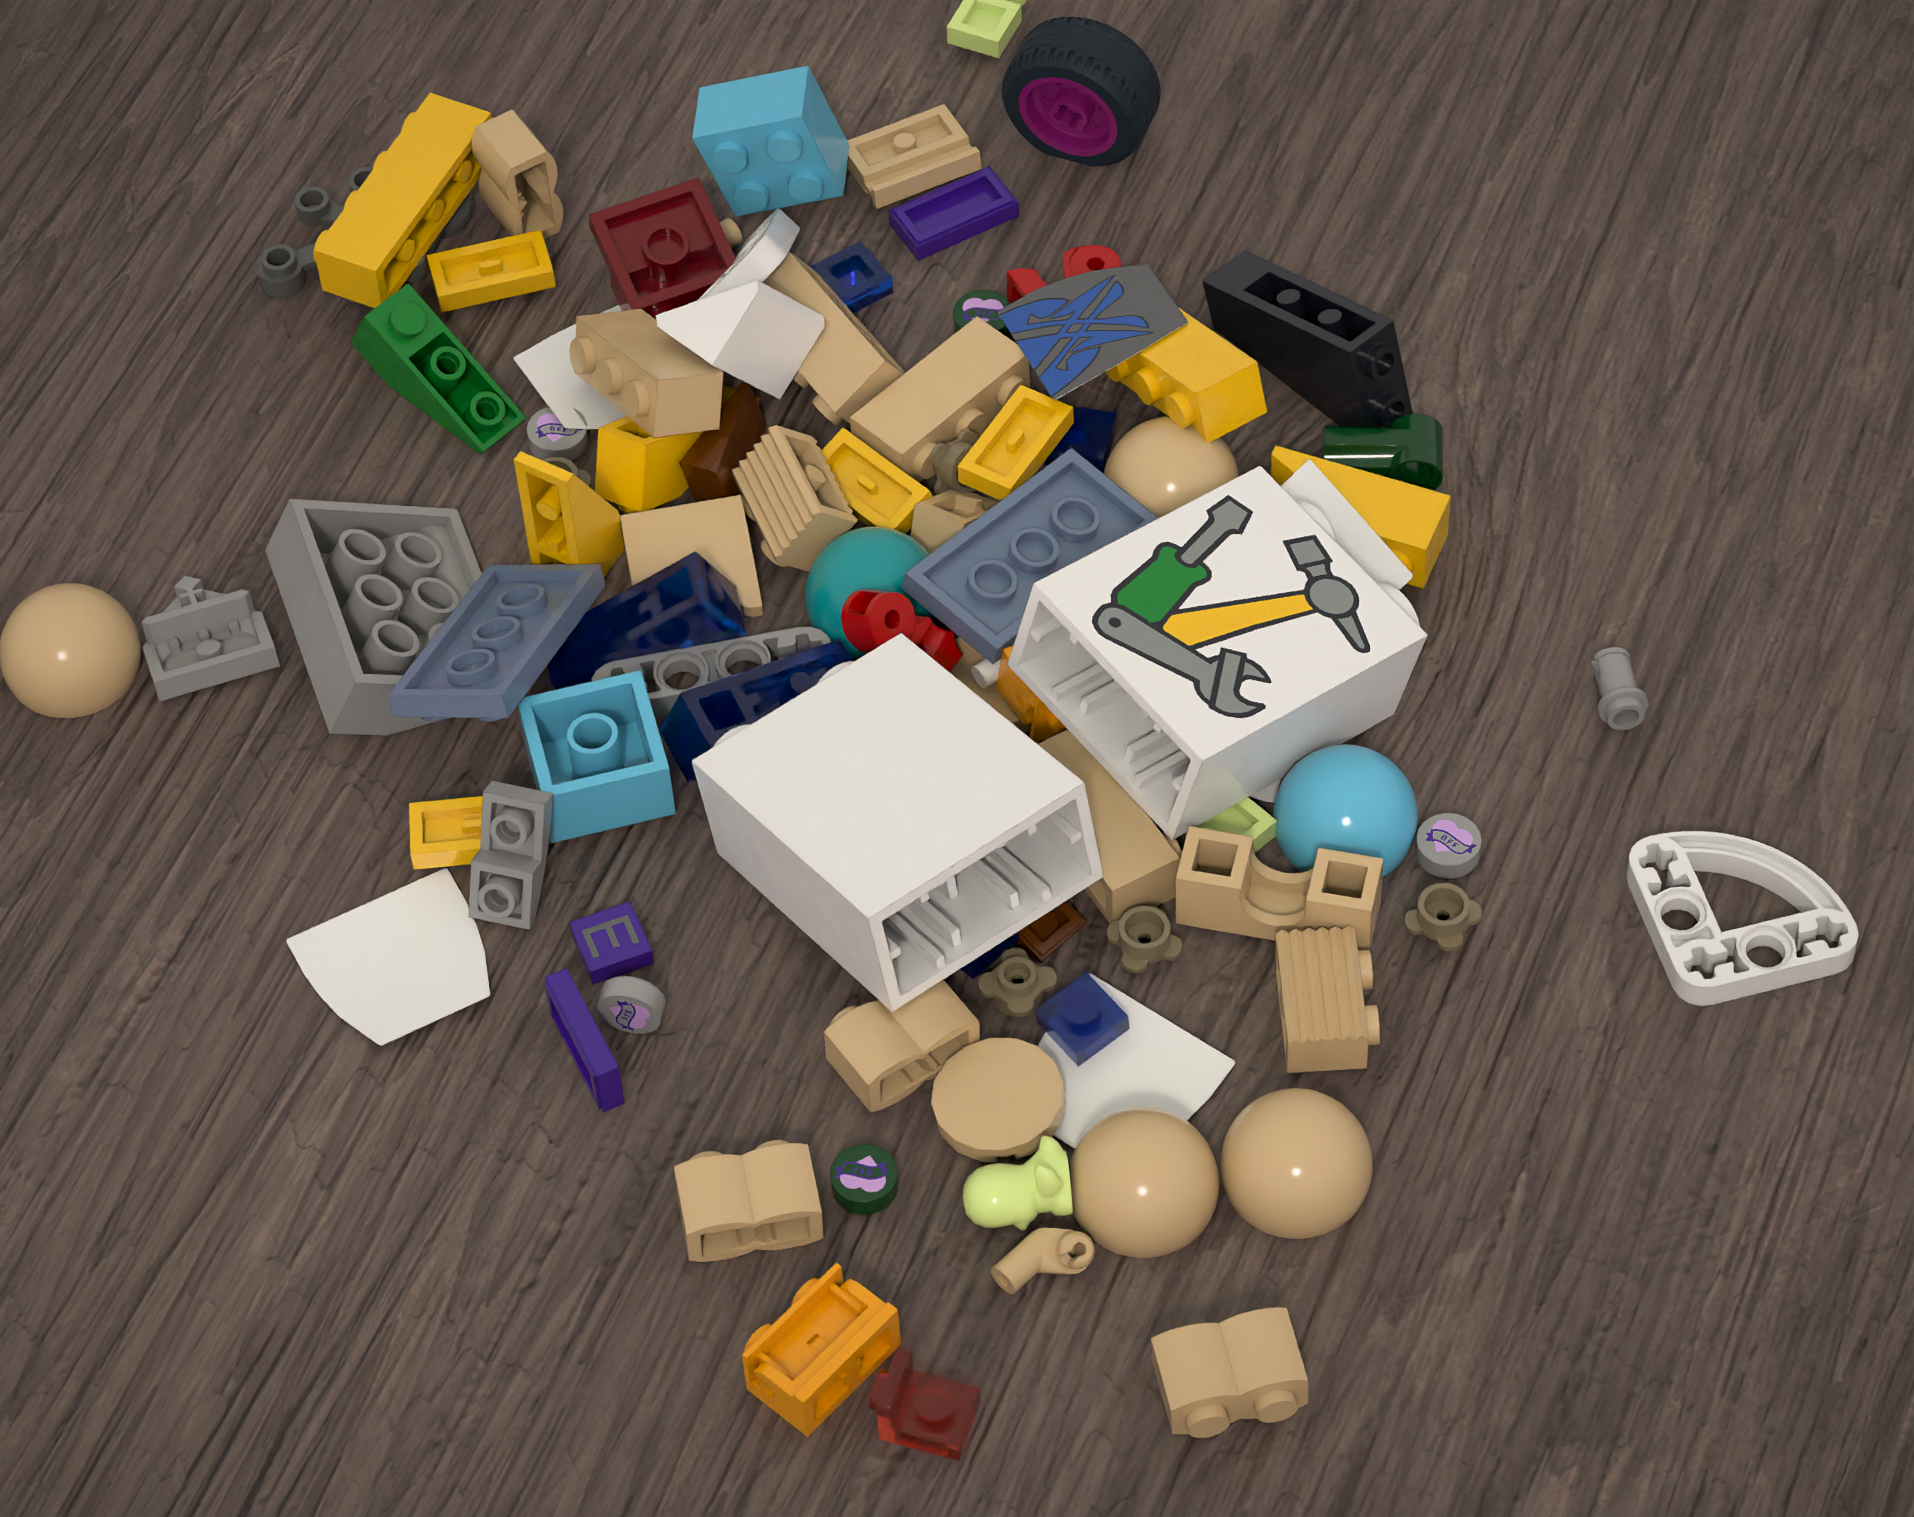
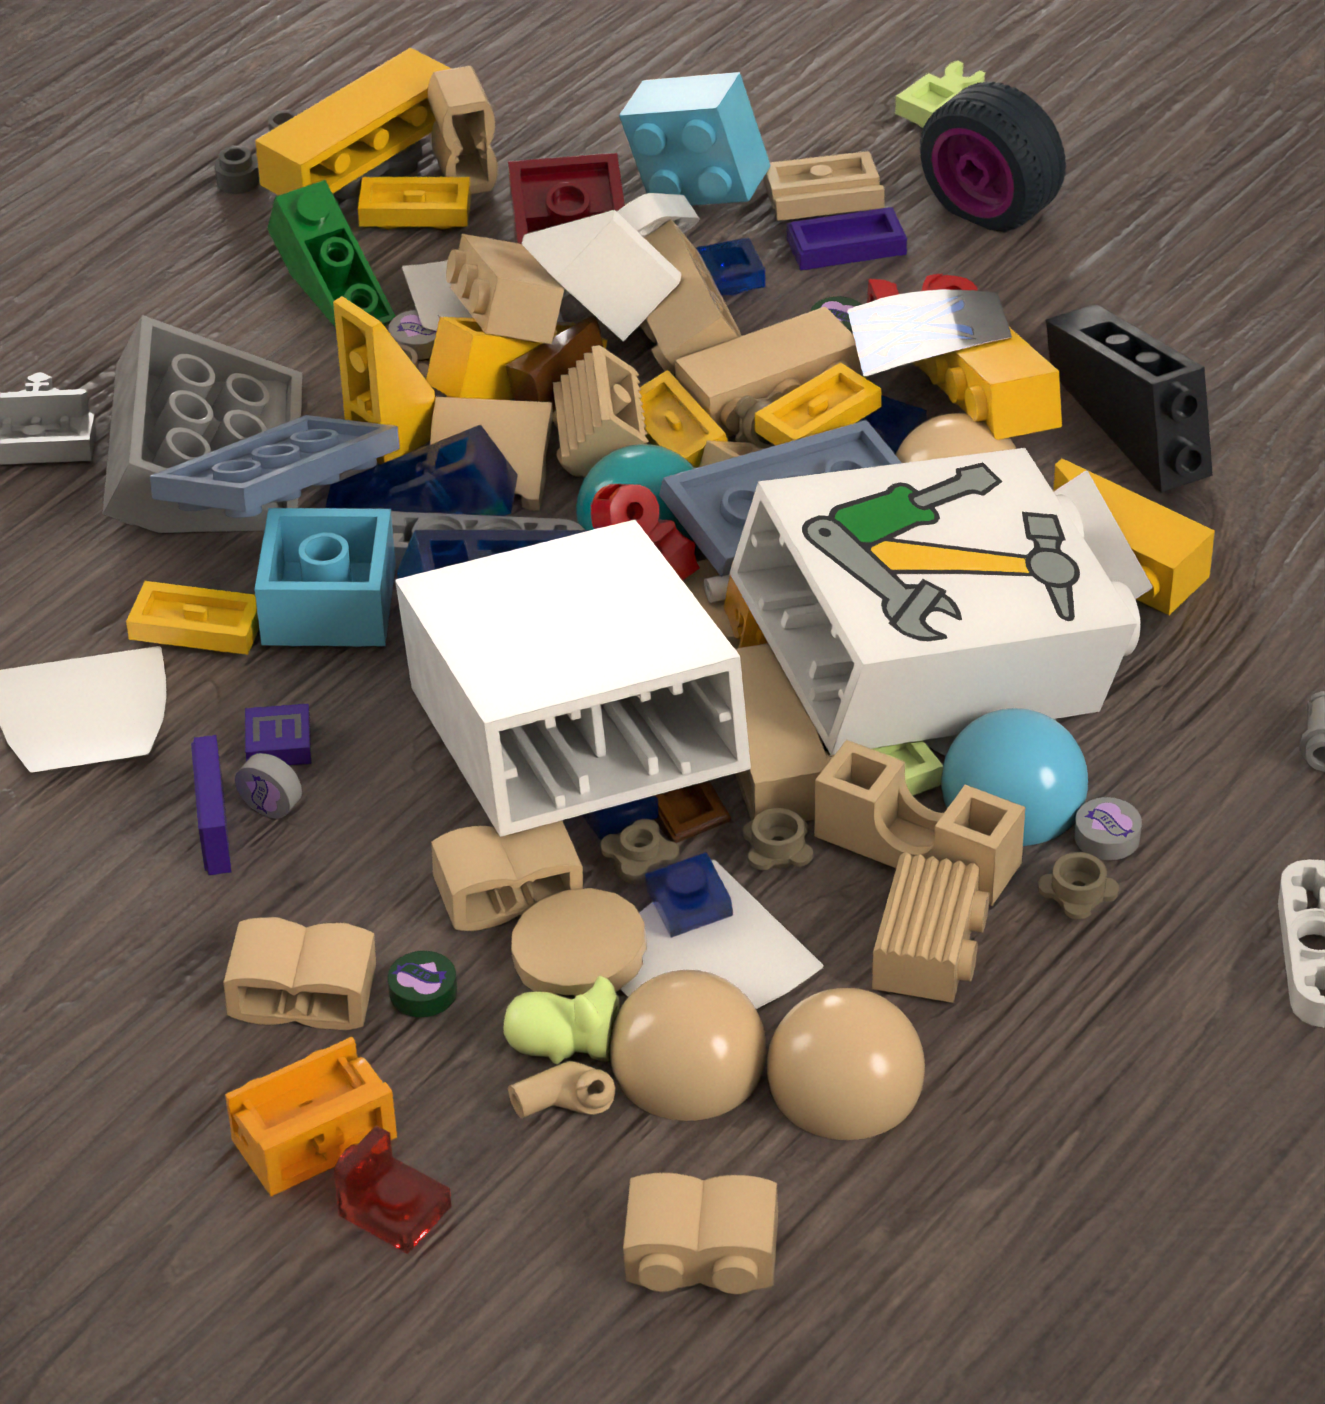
camera: 15 degrees right, 10 degrees down
(511, 855) = (210, 649): light grey slope -> none
(1404, 451) = (1194, 492): dark green piece -> none

